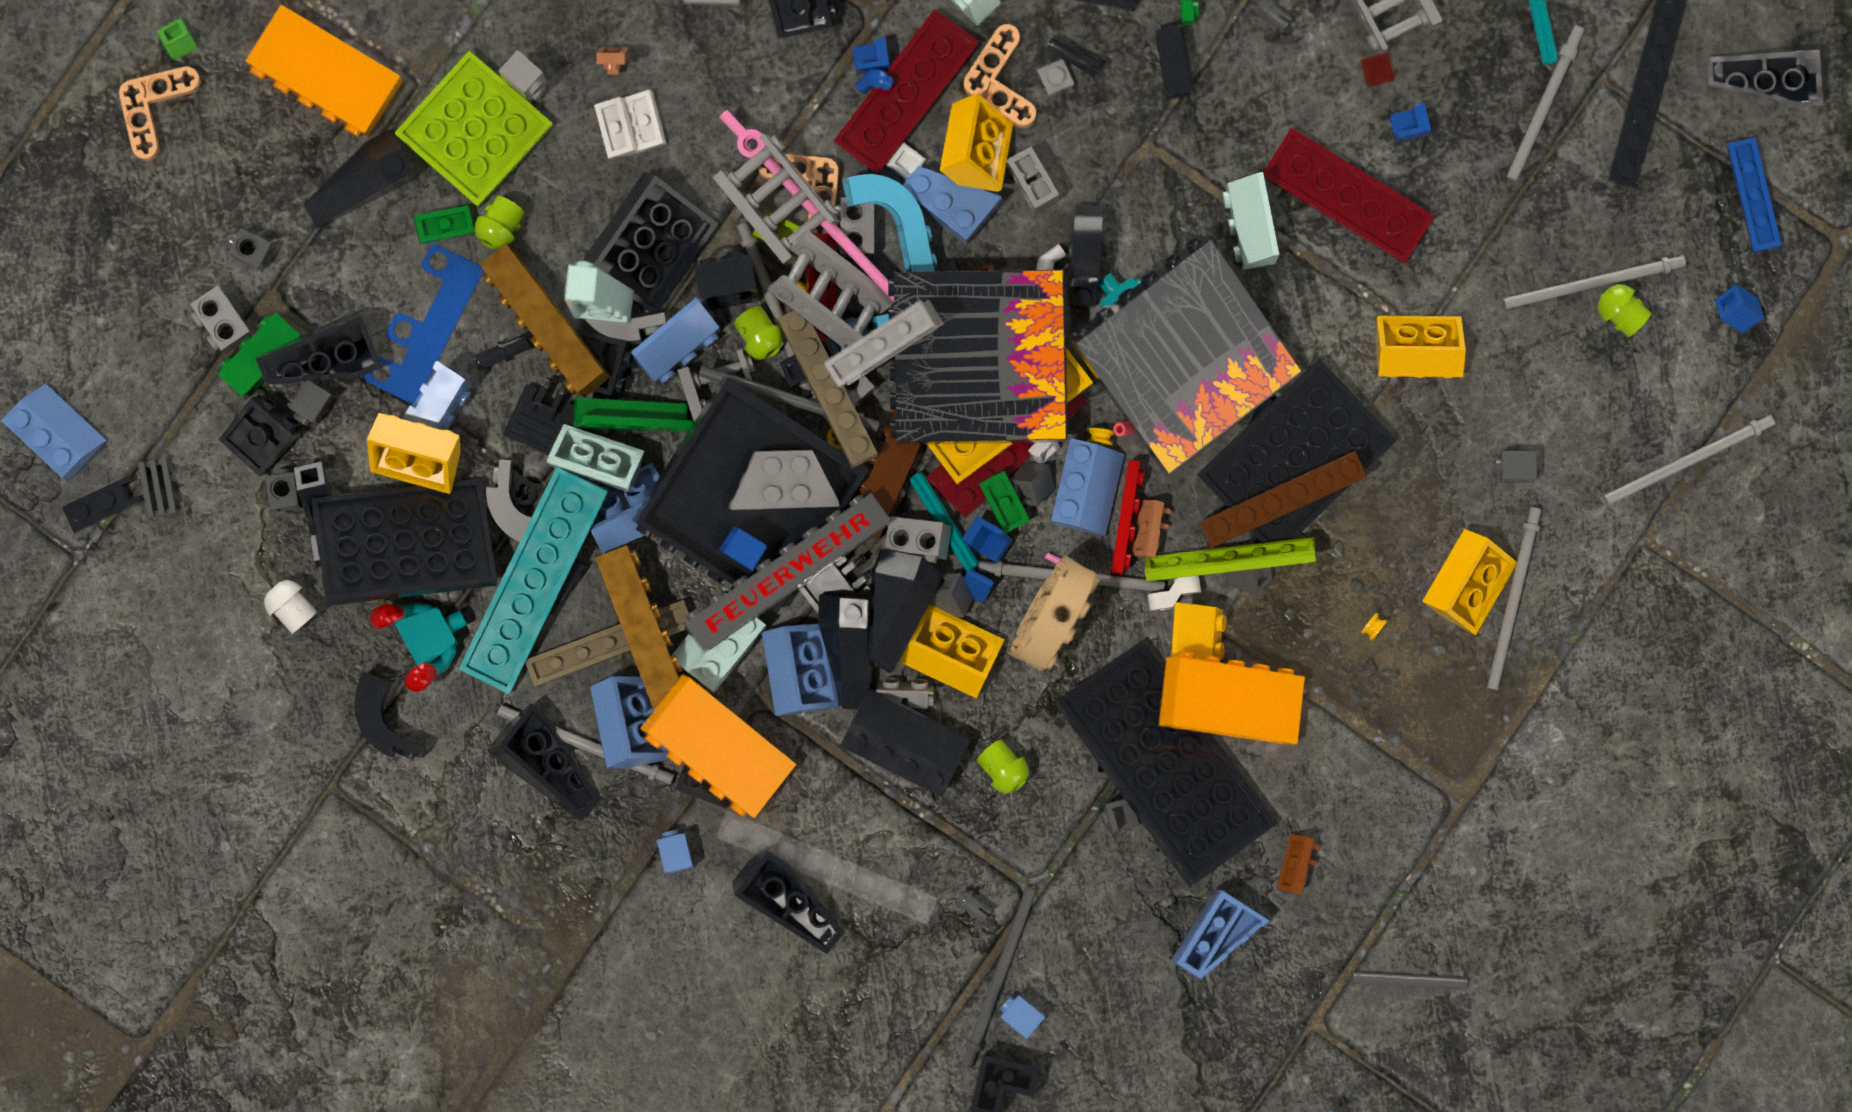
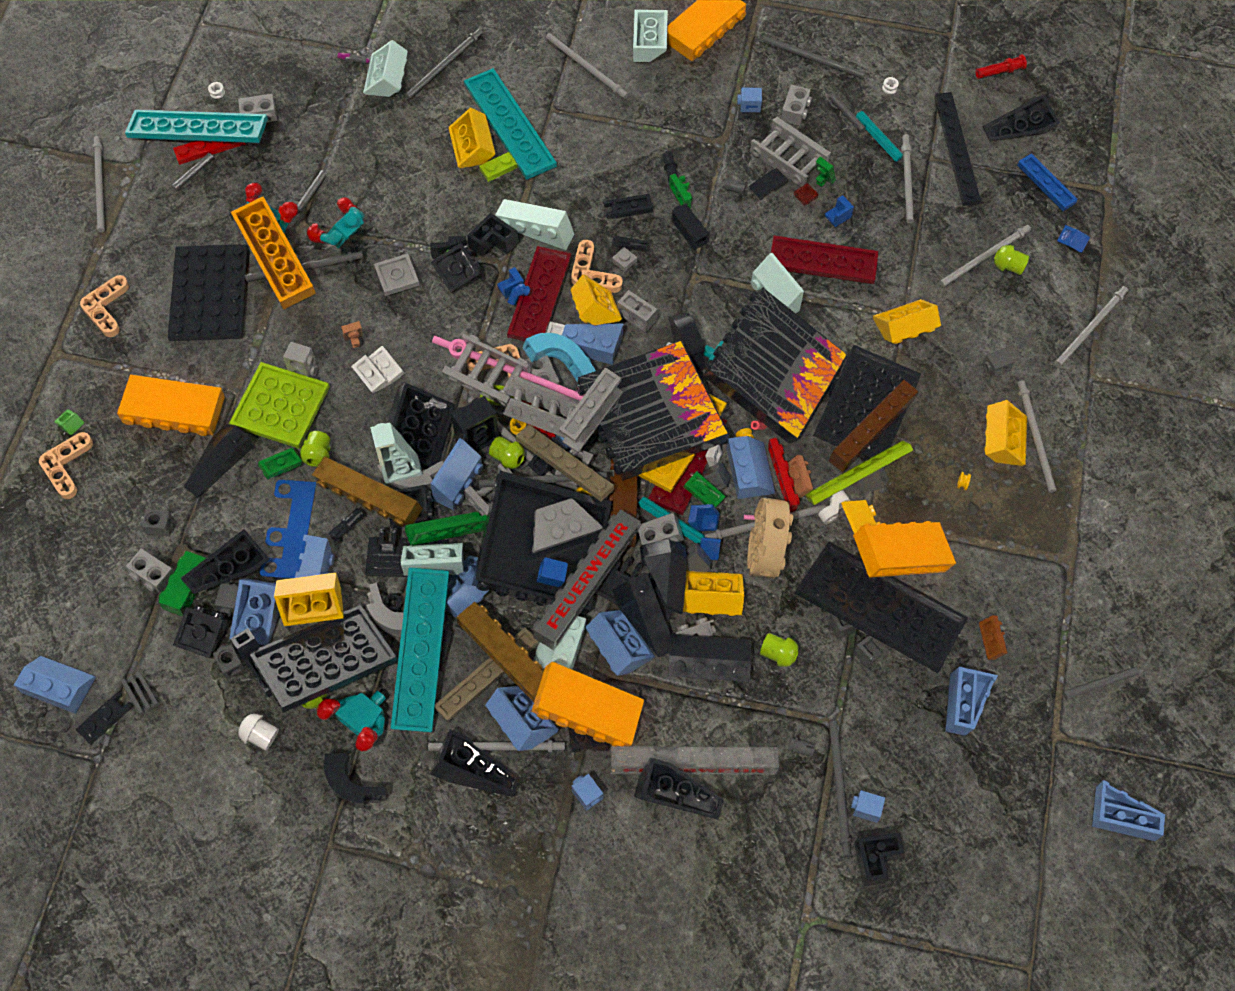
camera: 25 degrees left, 20 degrees down
(340, 432) = (255, 610): none -> medium blue slope
(1327, 31) = (770, 181): none -> black slope
(1416, 51) = (825, 171): none -> green plate

